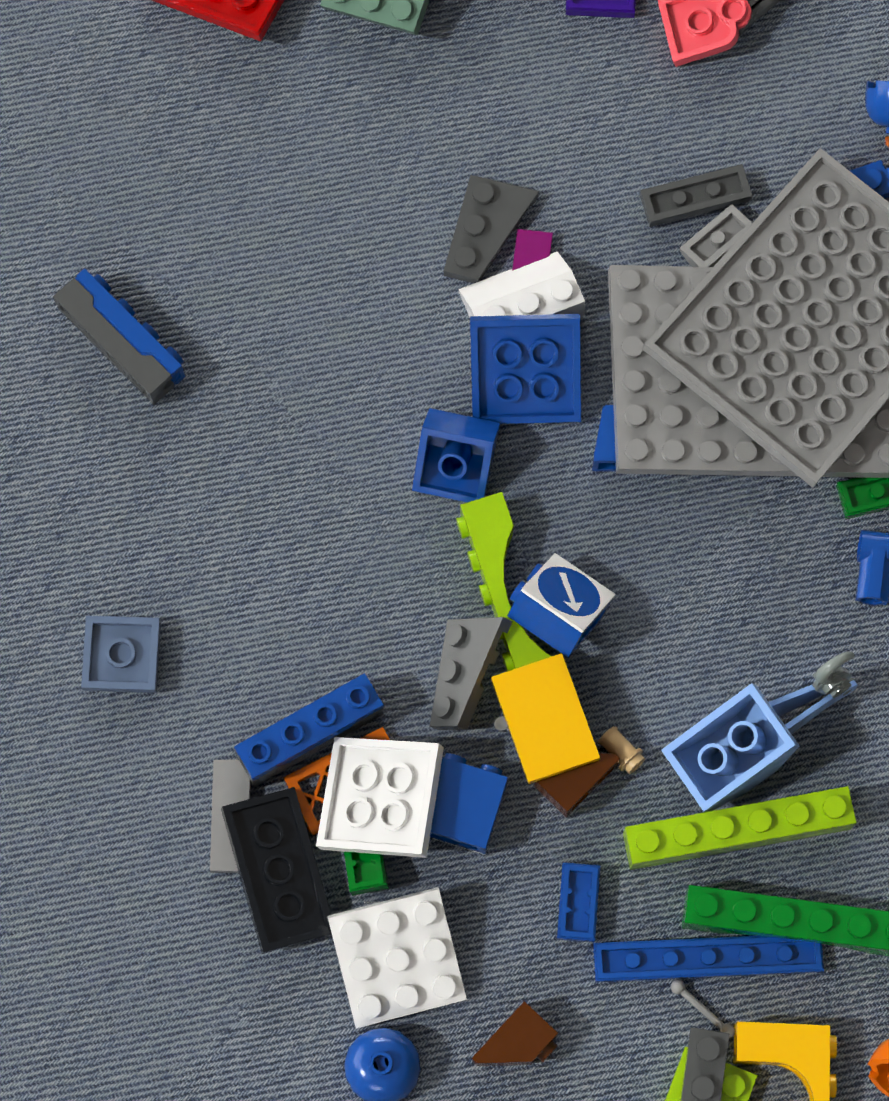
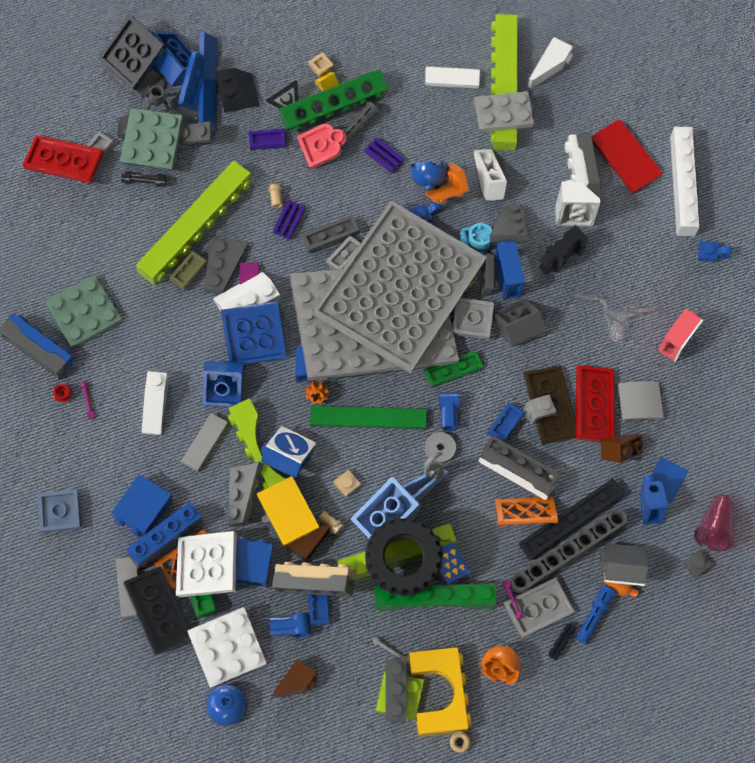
camera: 15 degrees left, 5 degrees down
(152, 423) = (62, 388): none -> red plate
(203, 480) = (90, 414): none -> magenta hinge
(214, 283) = (83, 311): none -> sand green plate
(274, 668) = (141, 506): none -> blue brick
(324, 474) = (154, 402): none -> white slope
(330, 37) = (159, 179): none -> black bar
(406, 562) = (204, 442): none -> light grey tile
(419, 230) = (188, 270): none -> olive plate
(442, 141) = (194, 223): none -> lime brick
(530, 935) = (296, 625): none -> blue piece
(576, 856) = (314, 579): none -> piece
(602, 109) = (276, 196): none -> tan pin
(629, 497) = (317, 392): none -> orange gear
(635, 134) = (294, 206): none -> dark purple tile
(662, 679) = (347, 483): none -> tan plate
(705, 958) = (389, 624): blue tile -> none
(720, 558) = (368, 417): none -> green tile
(805, 830) = (393, 530): none -> black tyre
(826, 47) = (368, 150): none -> dark purple tile
(836, 866) = (453, 566): none -> blue piece
(850, 619) = (440, 439): none -> light grey piece

